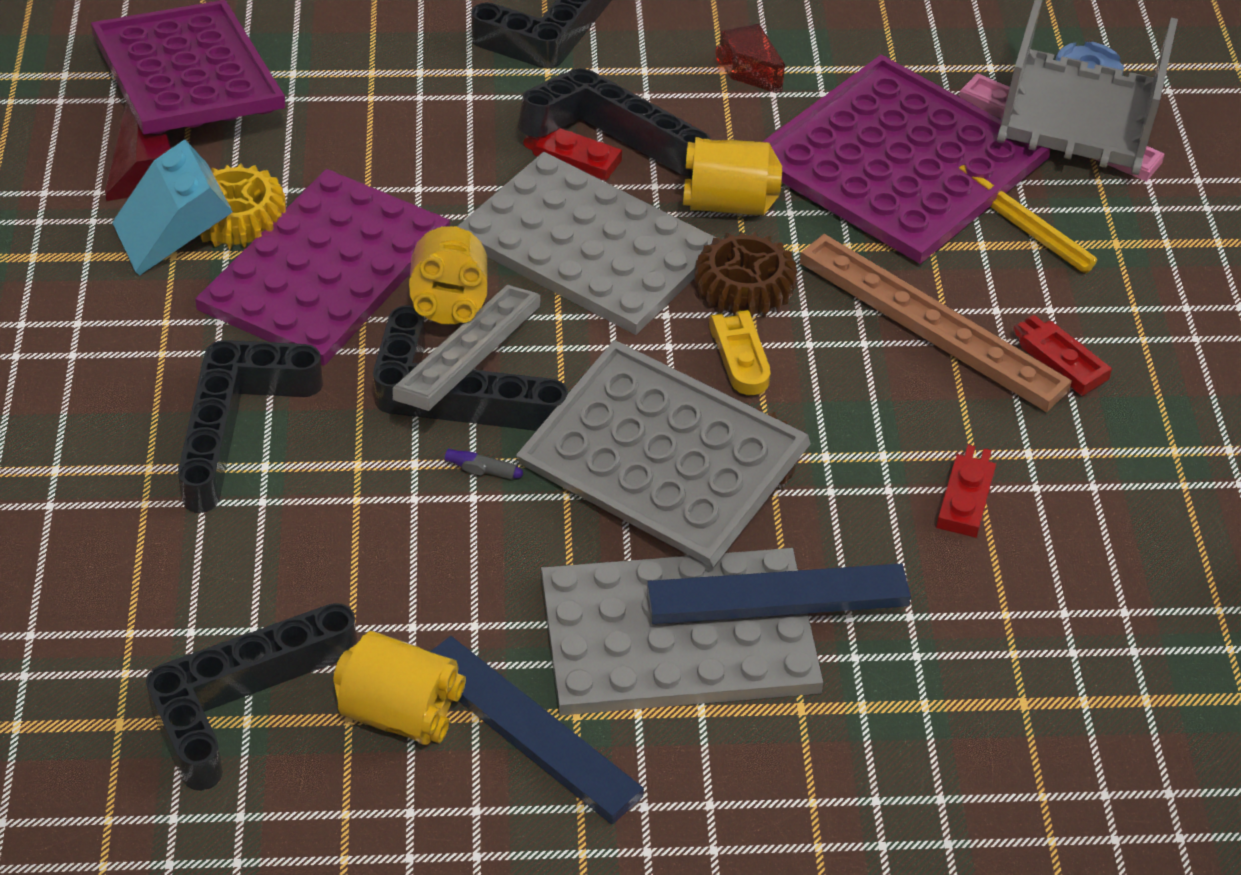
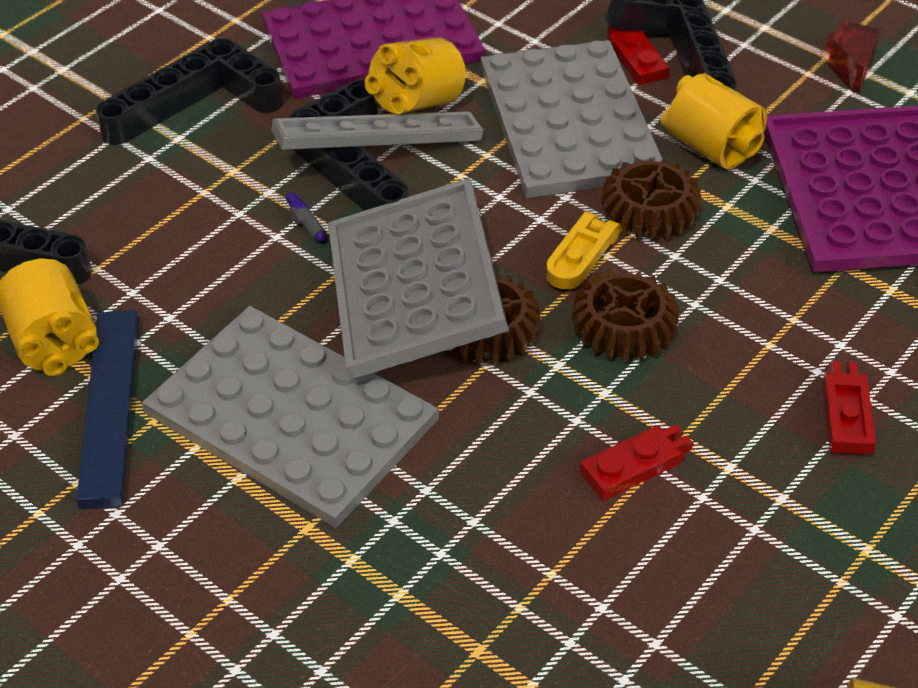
camera: 45 degrees right, 0 degrees up
(777, 593) = (377, 430): dark blue tile -> none
(861, 389) = (623, 324): none -> reddish brown gear
(936, 322) = (768, 326): nougat plate -> none

